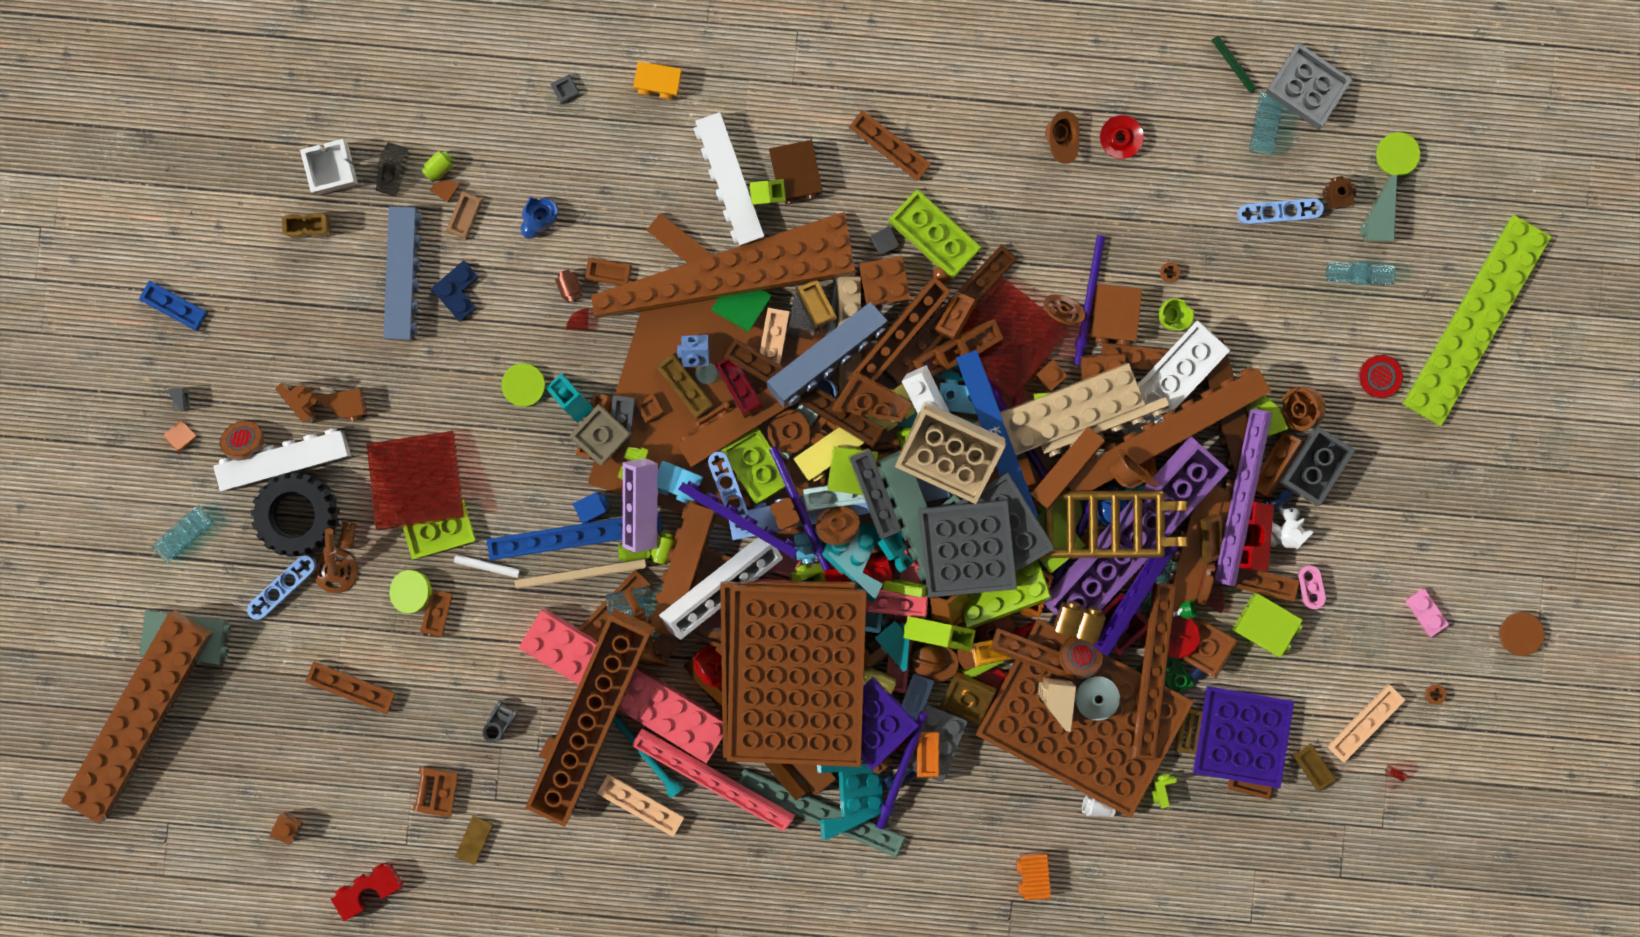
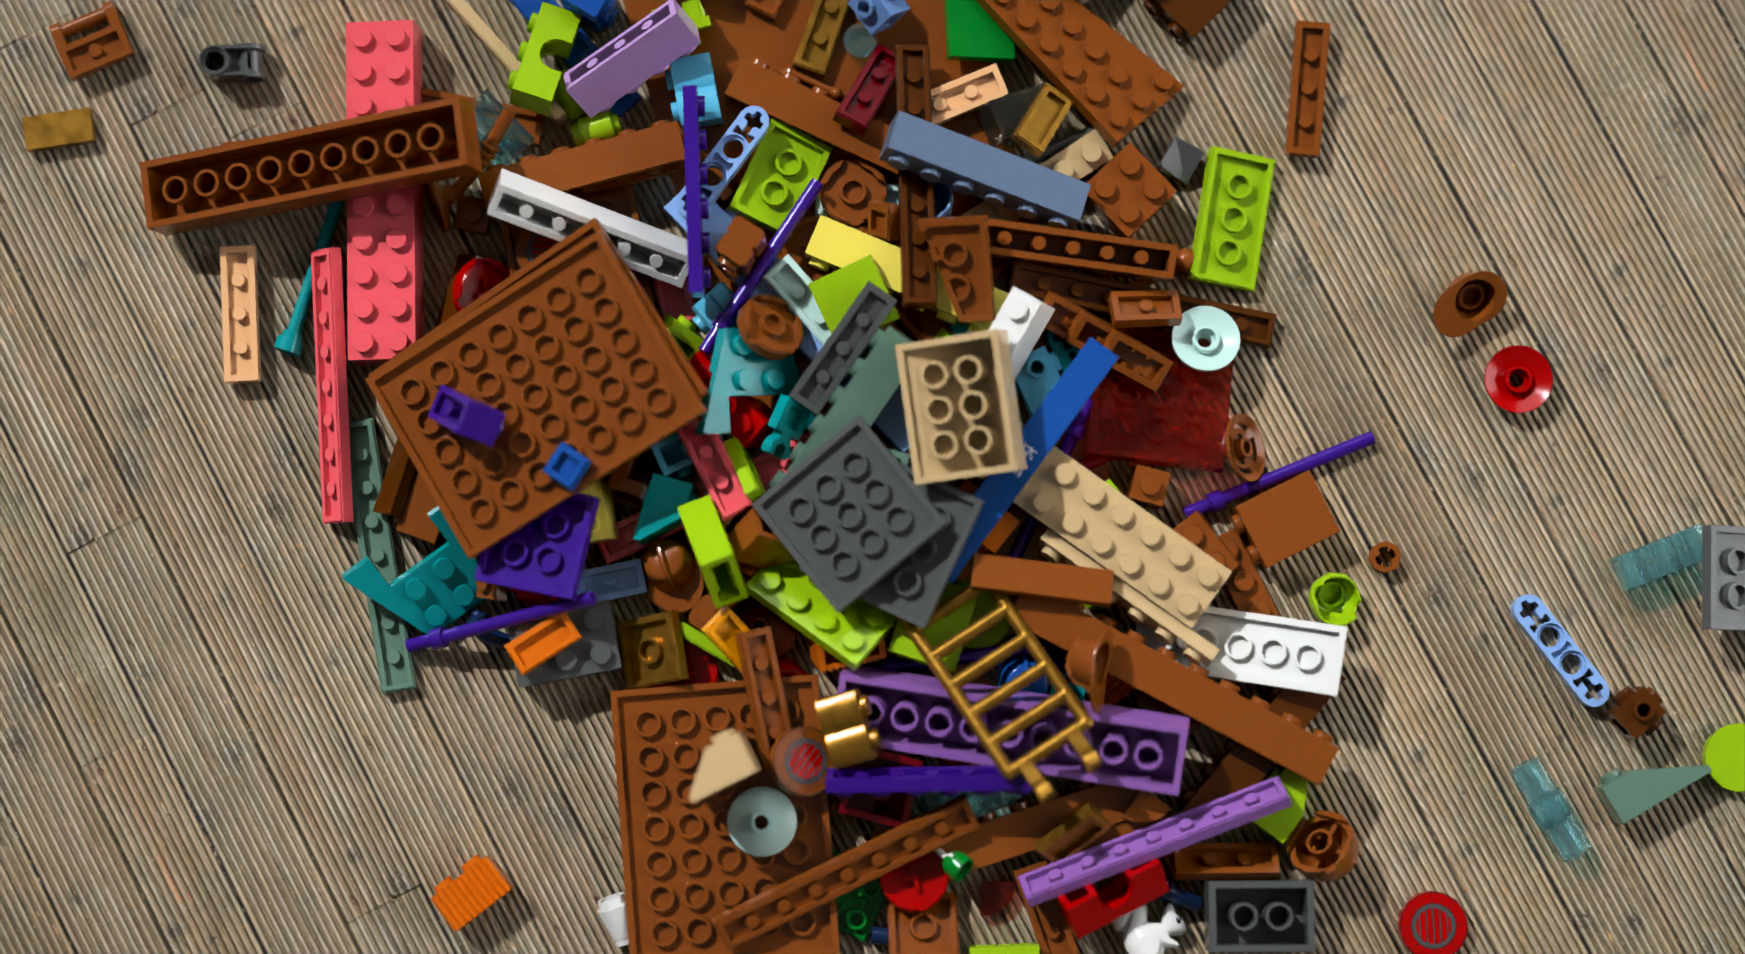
camera: 55 degrees right, 5 degrees down
(620, 567) = (534, 83): none -> lime arch
(785, 720) = (467, 415): none -> dark purple slope
(817, 426) = (883, 220): none -> dark orange tile
(847, 683) = (567, 466): none -> blue tile
(990, 282) = (1209, 324): none -> light aqua dish
(1206, 584) = (1006, 867): dark orange tile -> none
(1222, 490) = (1145, 808): none -> dark orange tile
(1233, 63) = (1709, 466): dark green bar -> none

